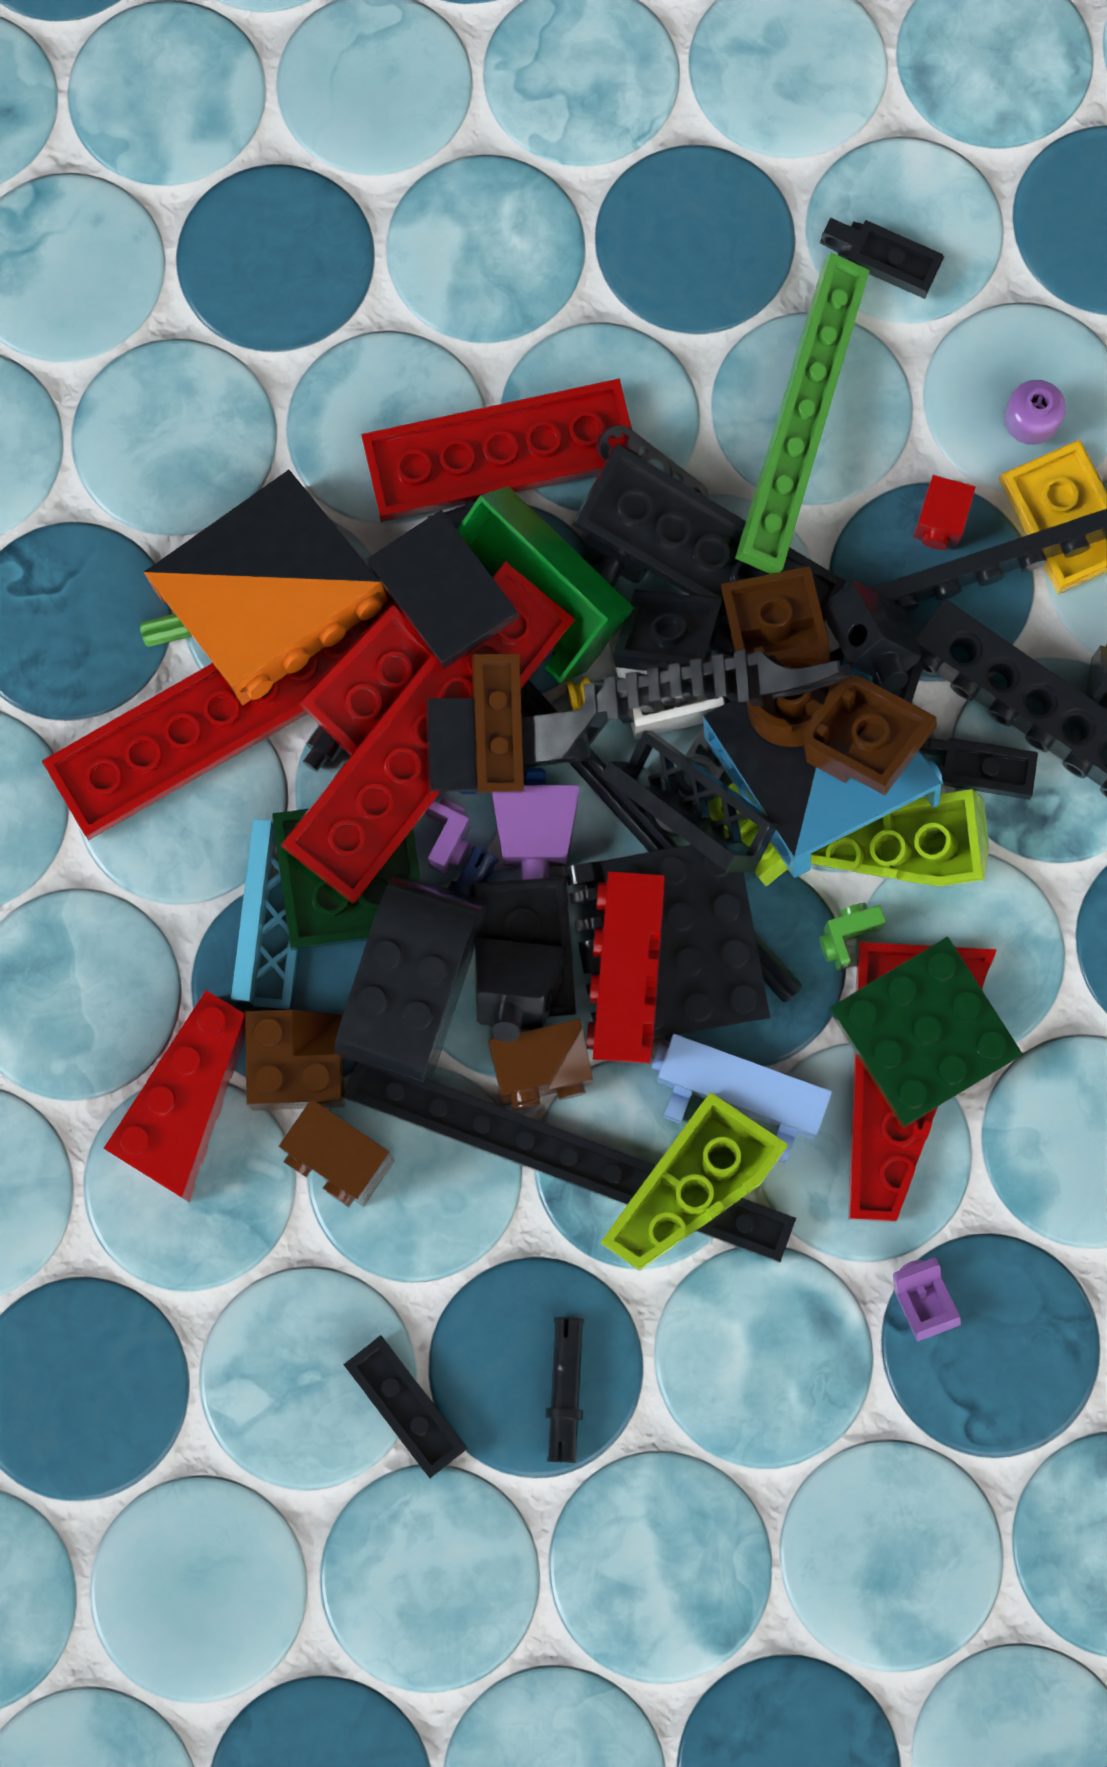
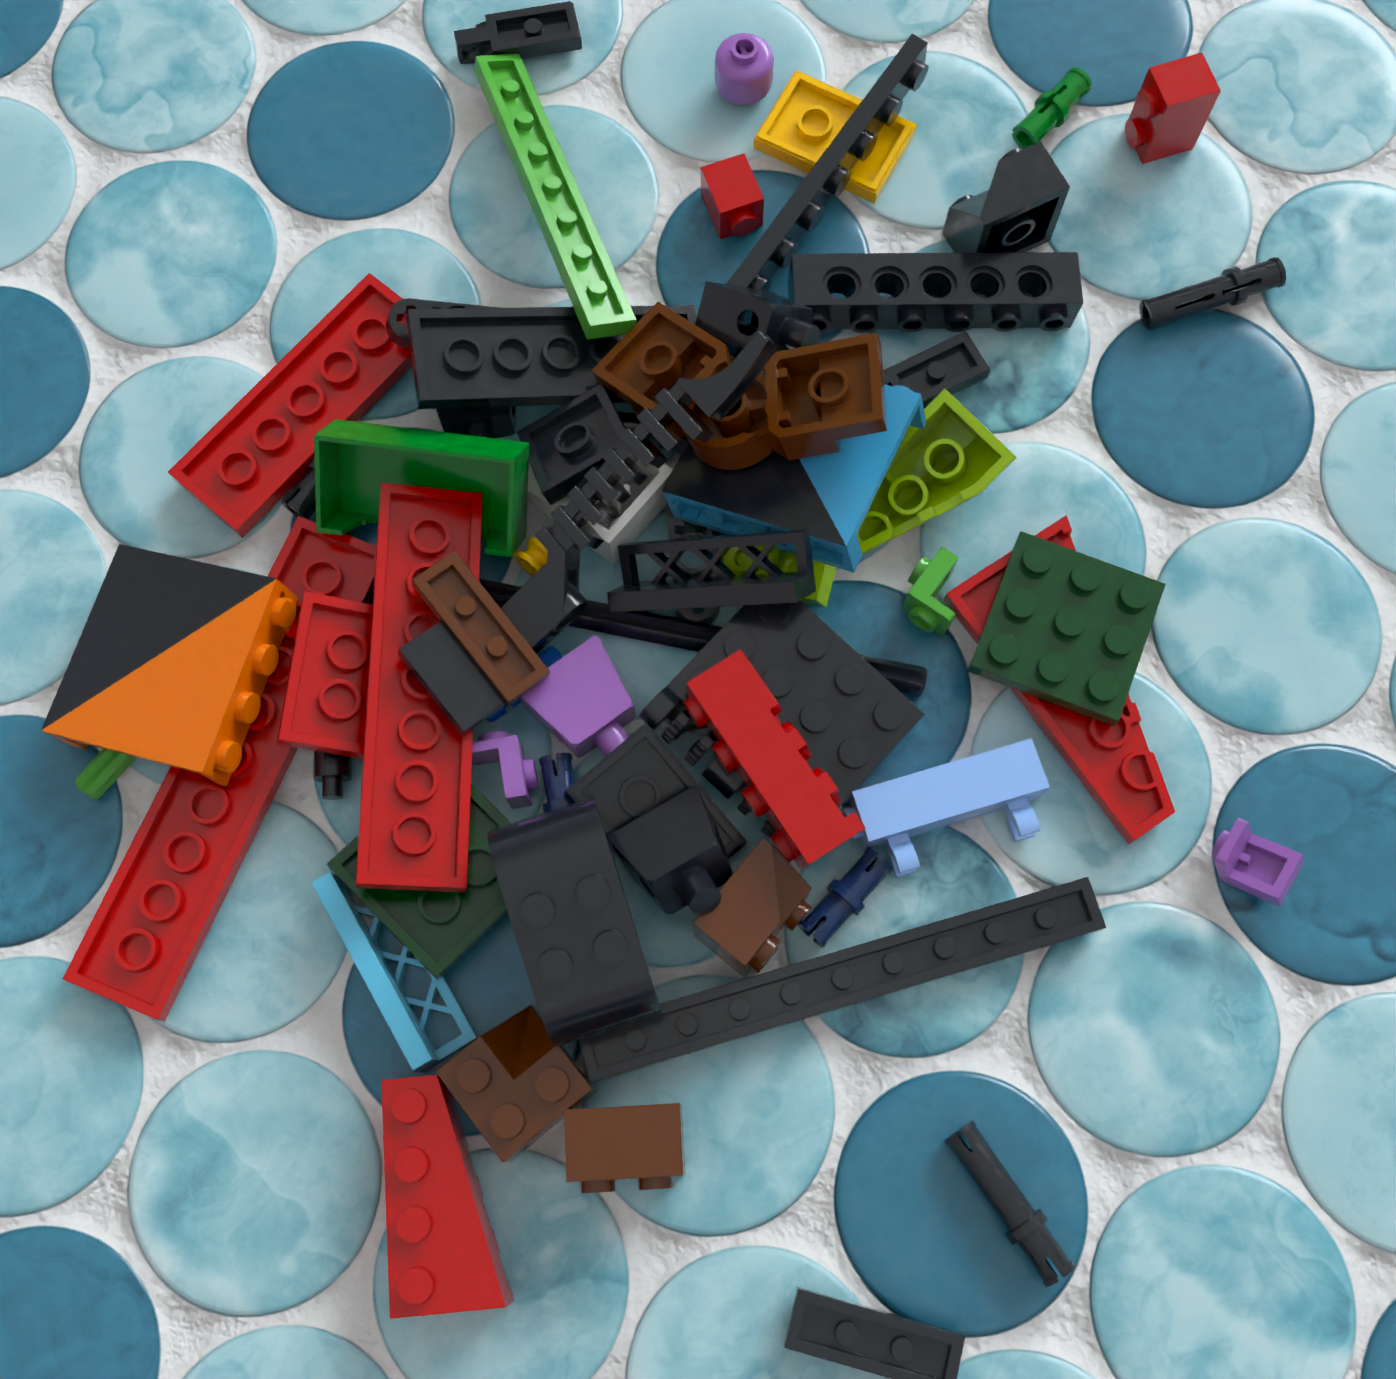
camera: 35 degrees left, 5 degrees down
(442, 588) = (340, 544): black tile -> none
(615, 1104) = (845, 897): none -> dark blue pin
(702, 1174) = (983, 903): lime wedge -> none

